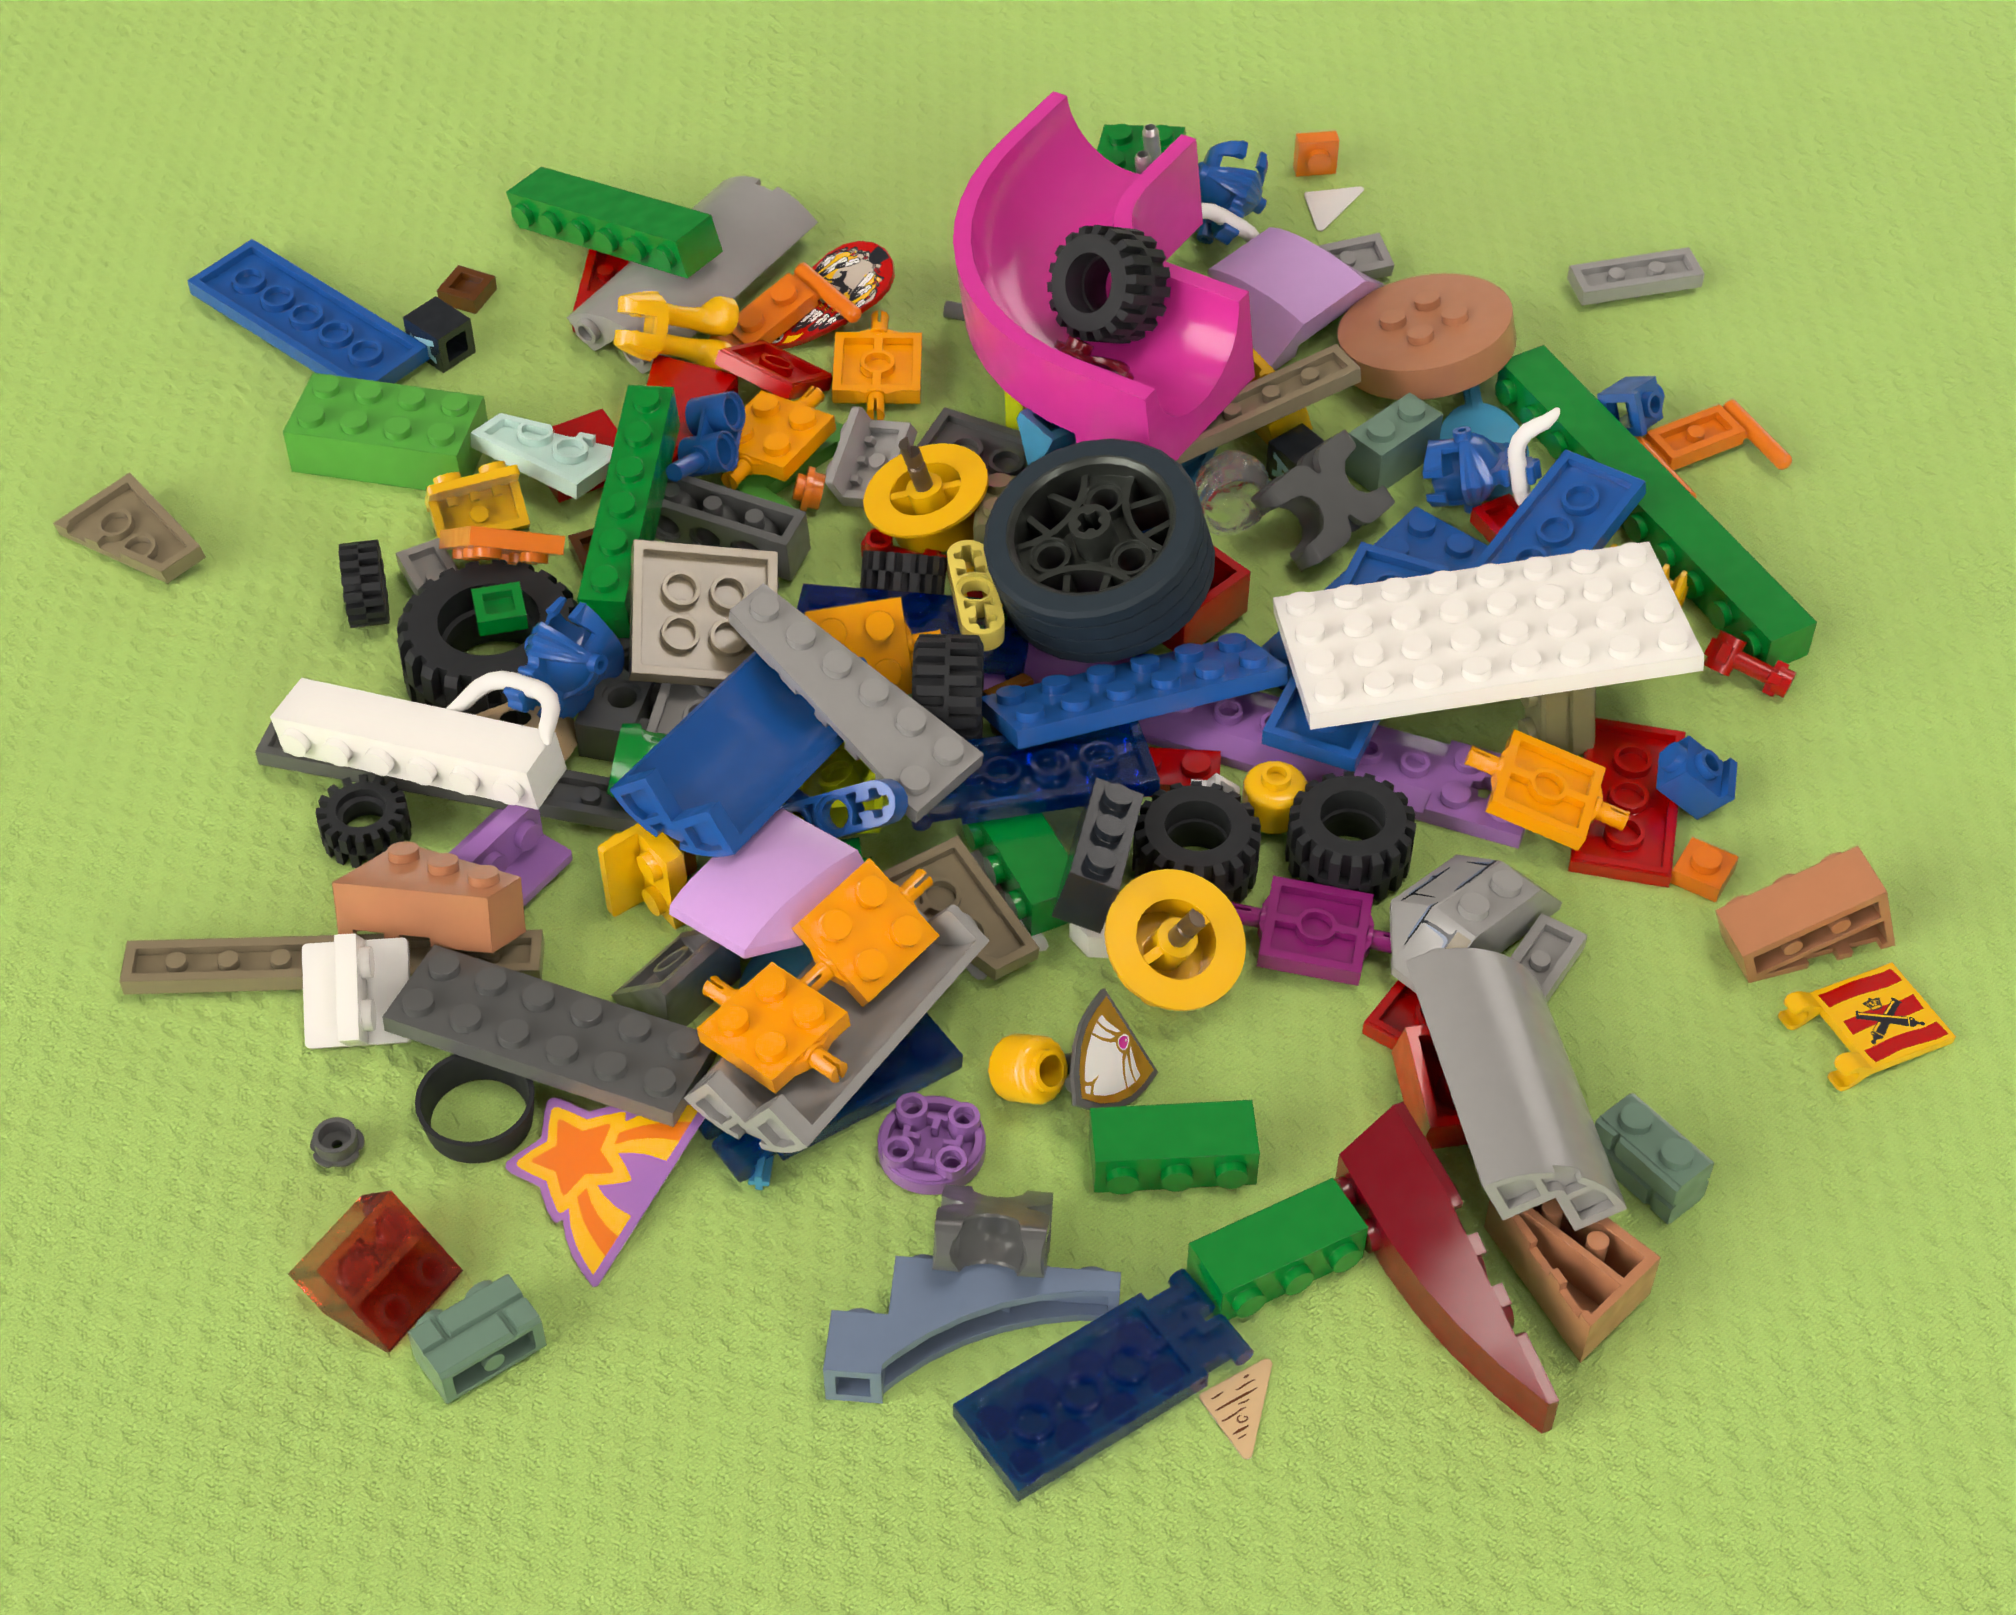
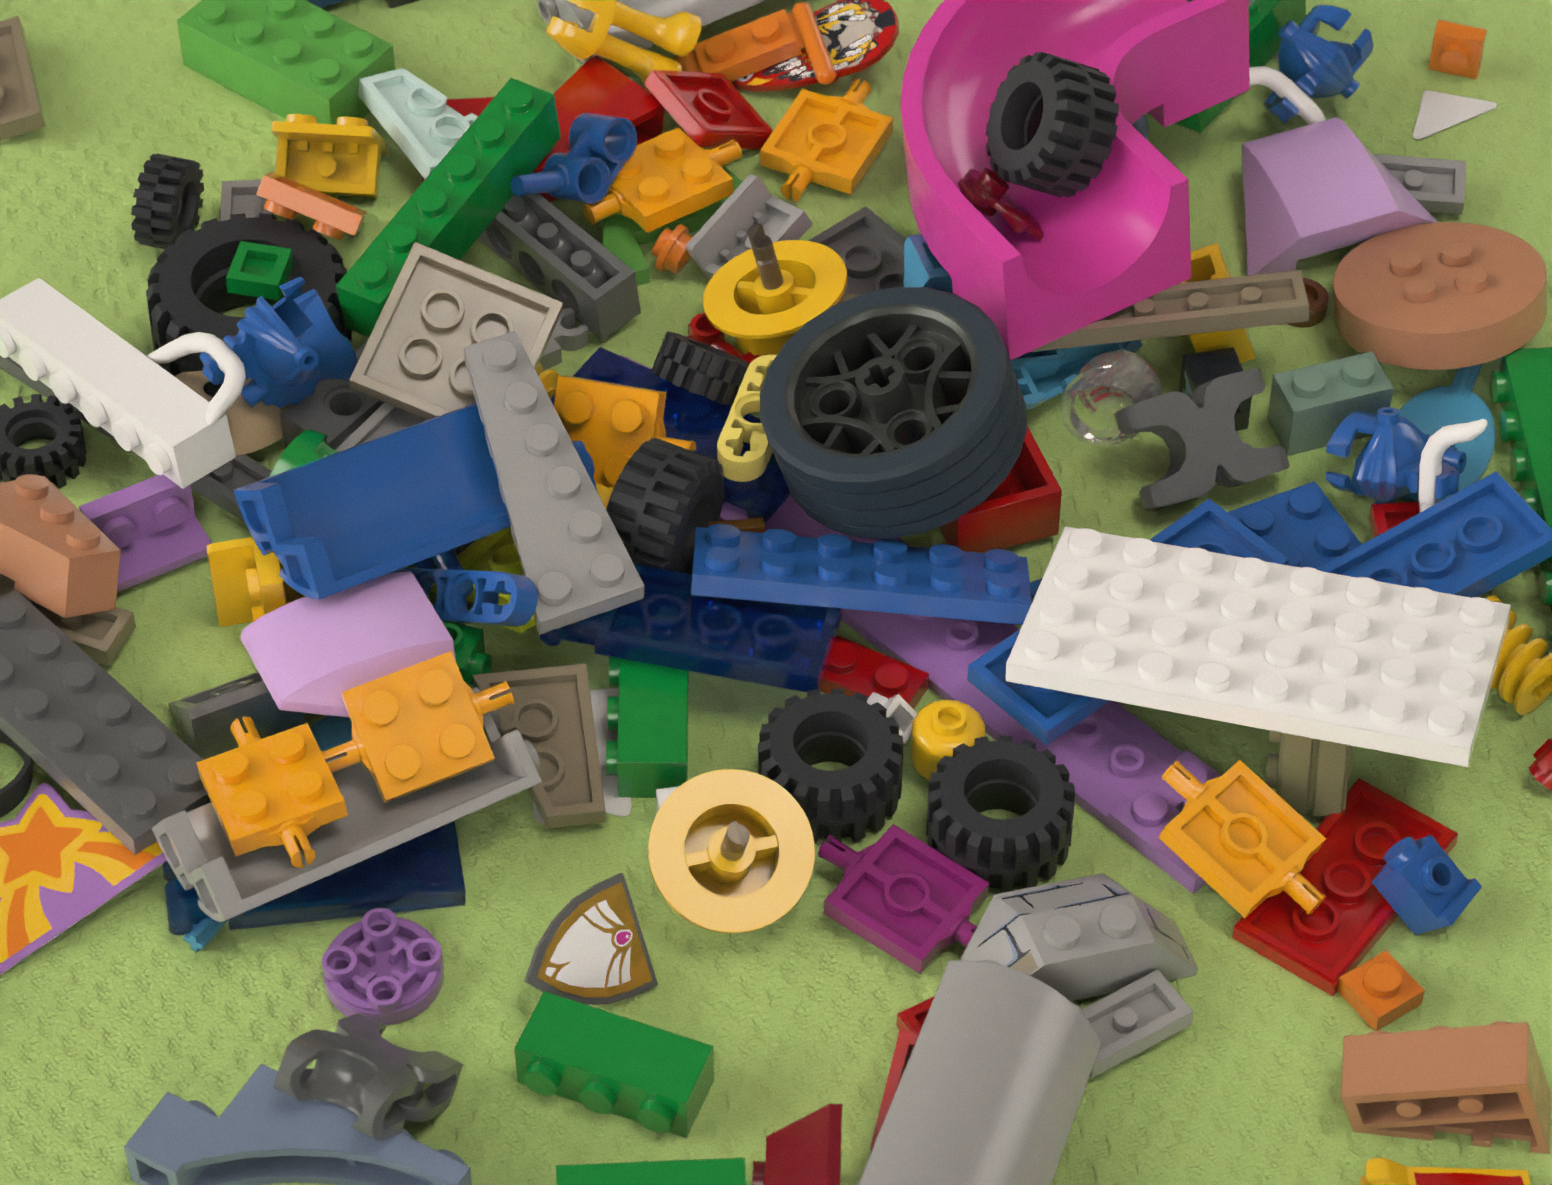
camera: 25 degrees right, 0 degrees up
(1027, 1068) = (510, 926): yellow head -> none
(1098, 855) = (704, 730): black brick -> none

